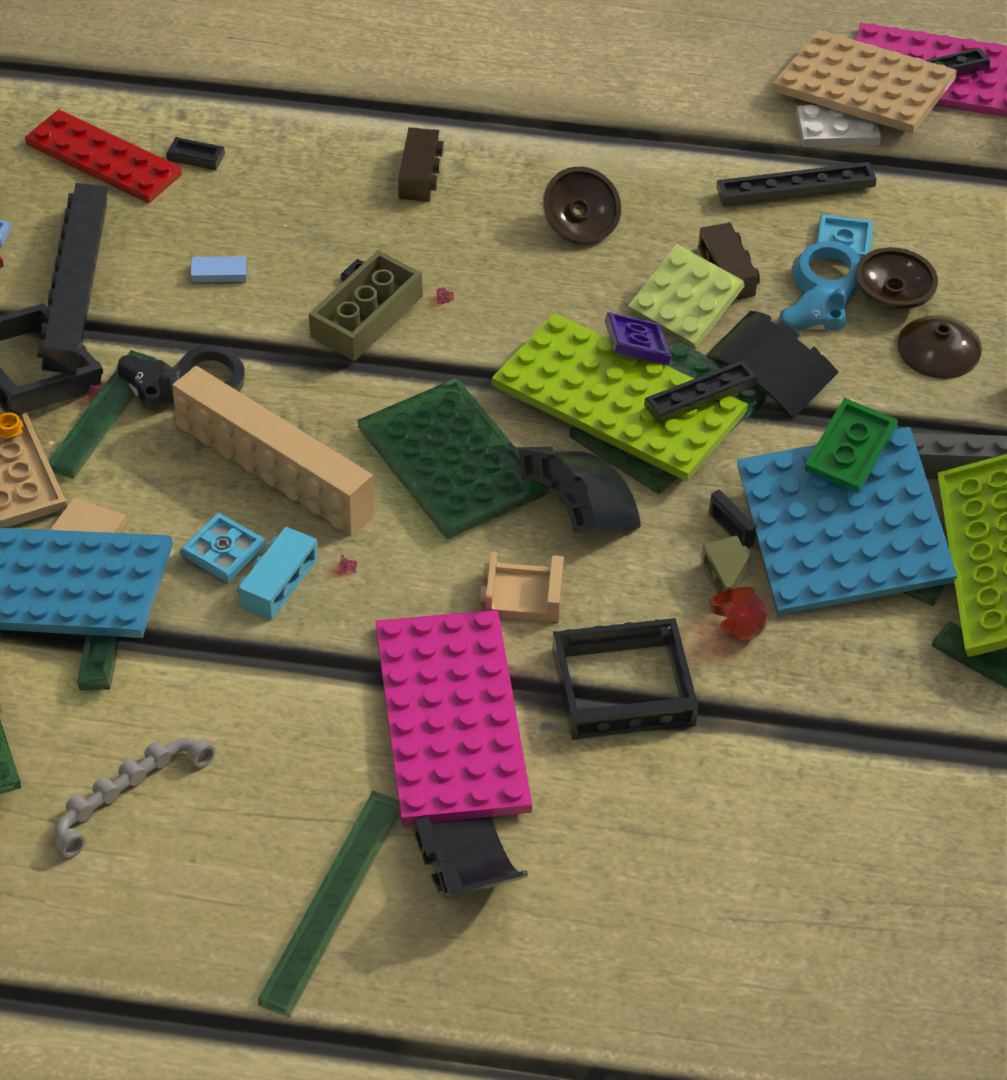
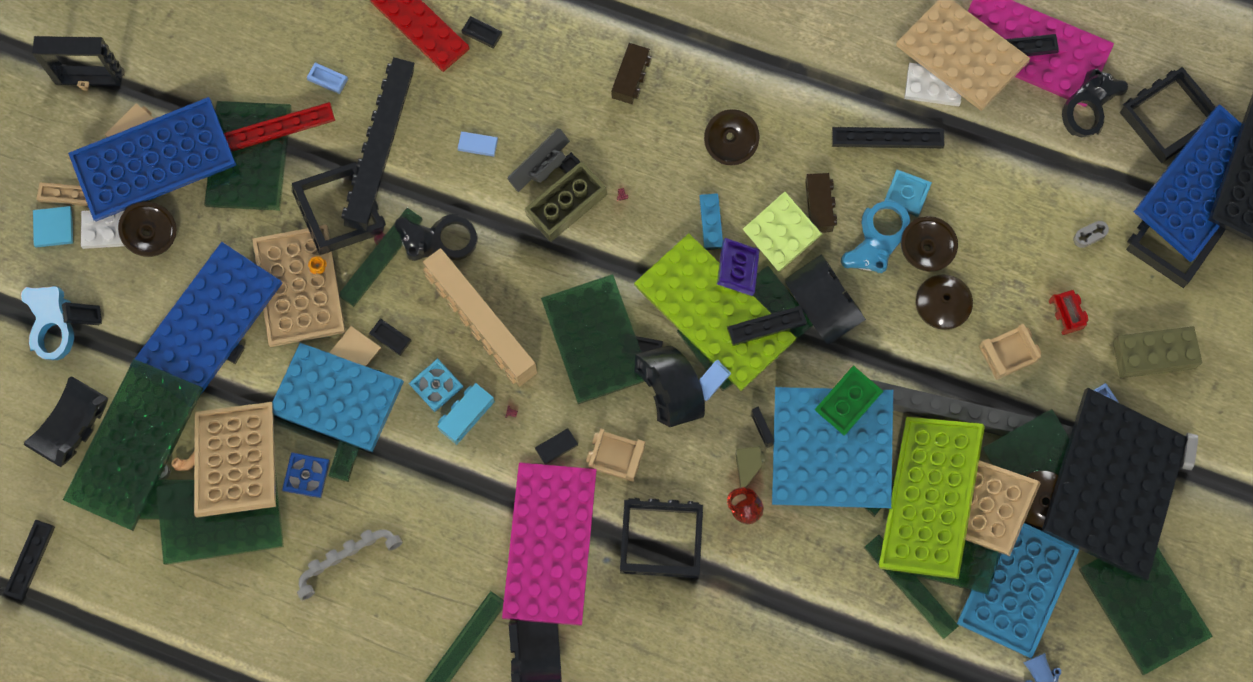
camera: 15 degrees right, 25 degrees up
(40, 690) = (306, 475): none -> blue piece
(138, 504) = (390, 337): none -> black tile
(315, 273) = (541, 161): none -> dark grey bracket
(428, 594) = (556, 446): none -> black tile
(579, 302) = (711, 221): none -> dark azure plate
(643, 470) = (713, 379): none -> light blue tile

